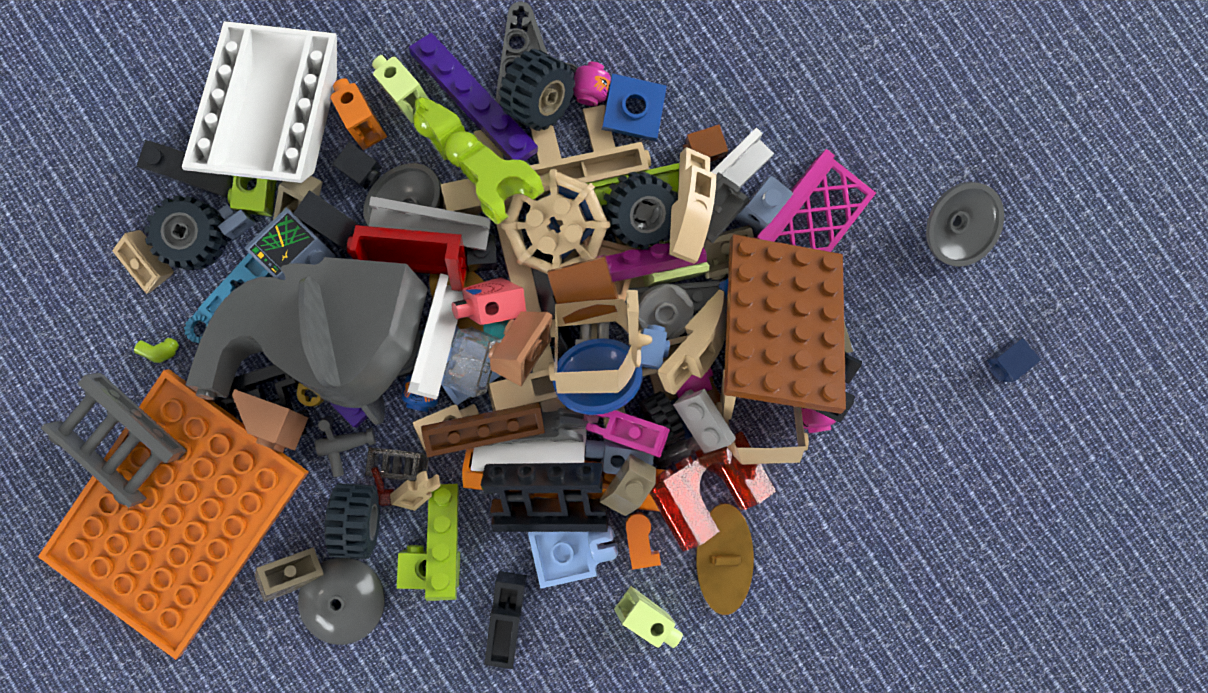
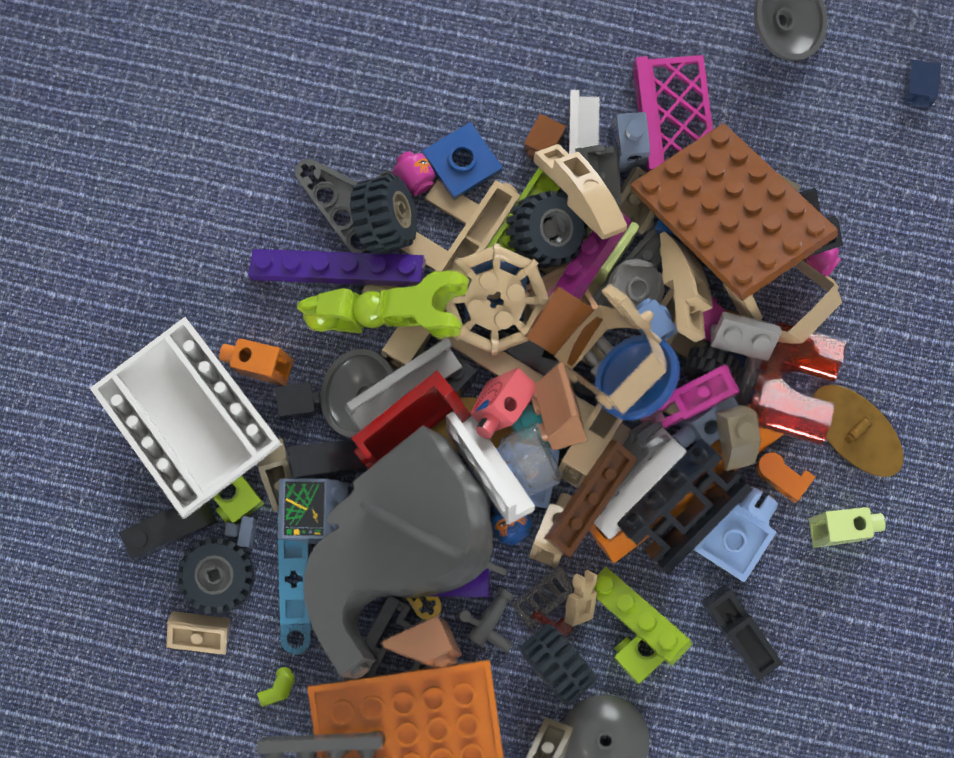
camera: 40 degrees left, 5 degrees down
(398, 84) = (271, 310): yellowish green torso -> none

